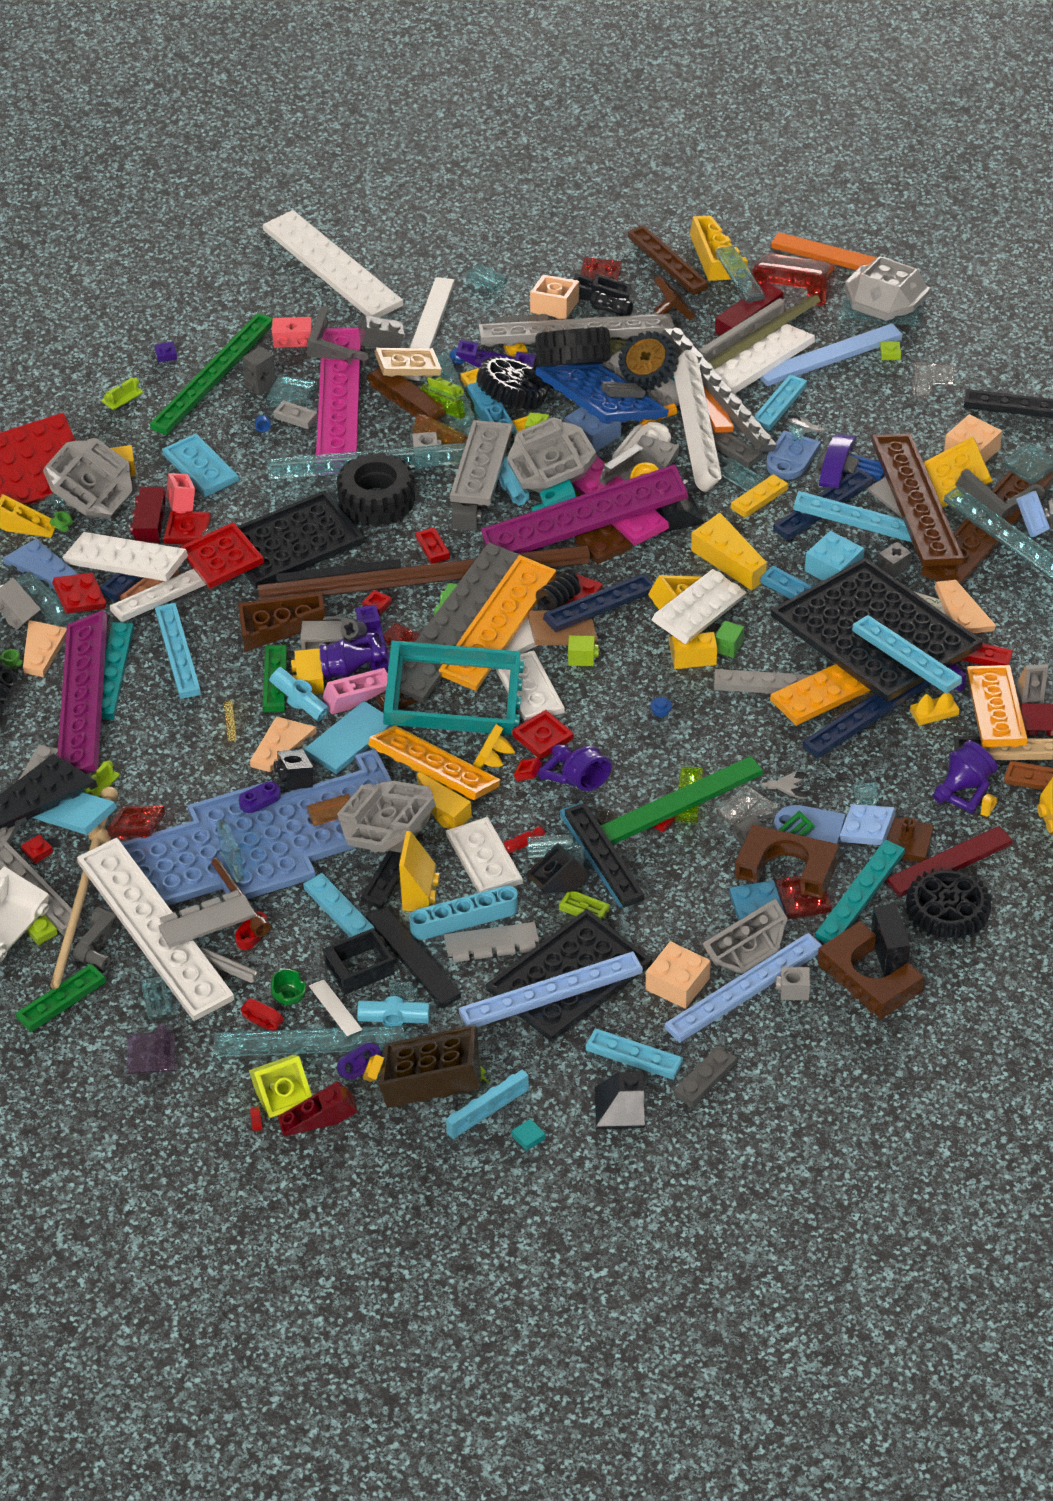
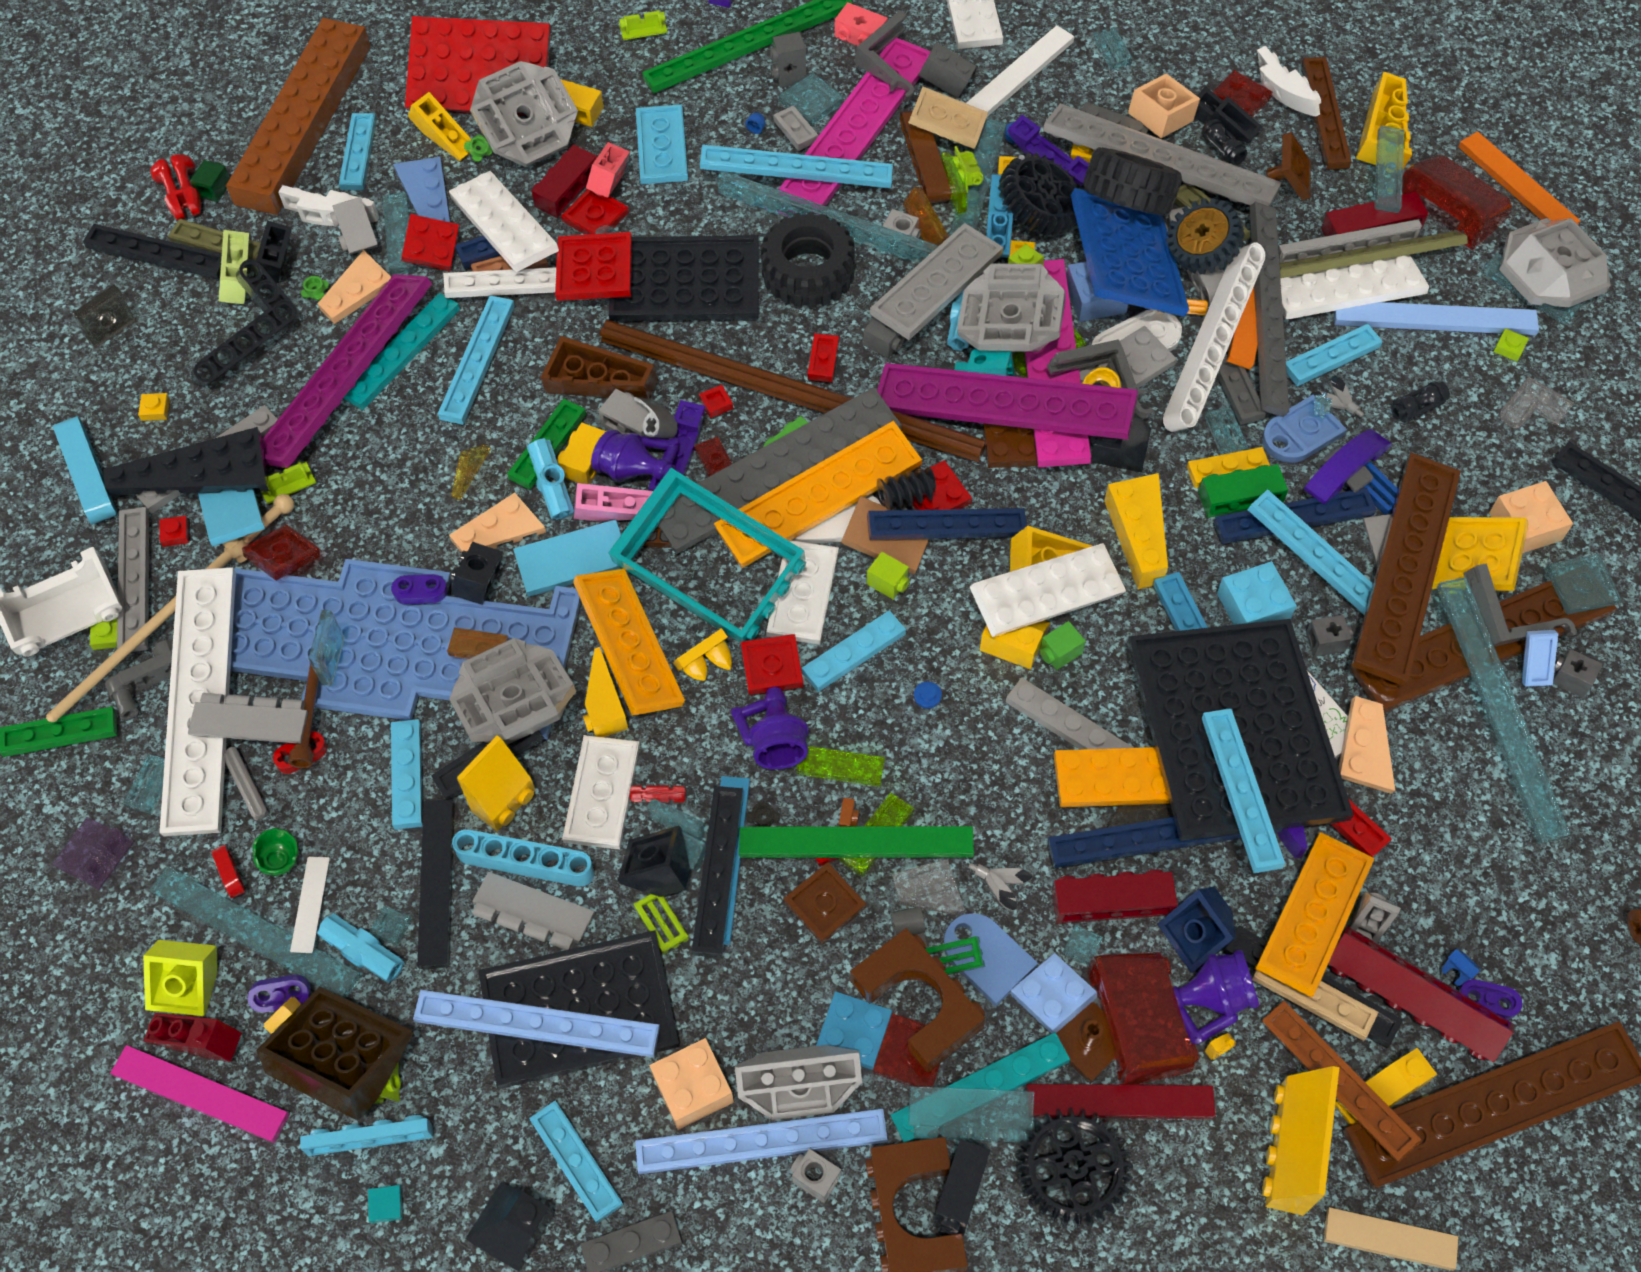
camera: 30 degrees right, 15 degrees up
(256, 1118) = (128, 1004): red tile -> none
(319, 435) = (796, 166): none -> medium azure tile
(340, 570) = (702, 344): black tile -> none
(349, 1141) = (200, 1094): none -> dark pink tile
(351, 947) = (343, 854): black window -> none
(527, 769) = (723, 702): red tile -> none
(591, 704) = (853, 651): none -> medium azure plate
(625, 390) = (1152, 260): dark grey tile -> none
(631, 253) = (1287, 86): none -> white slope
(636, 770) = (842, 766): none -> clear neon green tile
(661, 788) = (848, 815): none -> dark orange plate
(685, 845) = (824, 903): none -> reddish brown plate
(776, 503) = (1239, 489): none -> green brick
(858, 904) = (967, 1108): none -> clear light blue windscreen
(861, 399) = (1430, 396): none -> black piece
(866, 757) = (1113, 896): none -> dark red brick
(930, 748) = (1199, 927): none -> dark blue slope
(933, 710) = (1237, 870): yellow tile -> none
(933, 805) = (1143, 1016): none -> clear red windscreen

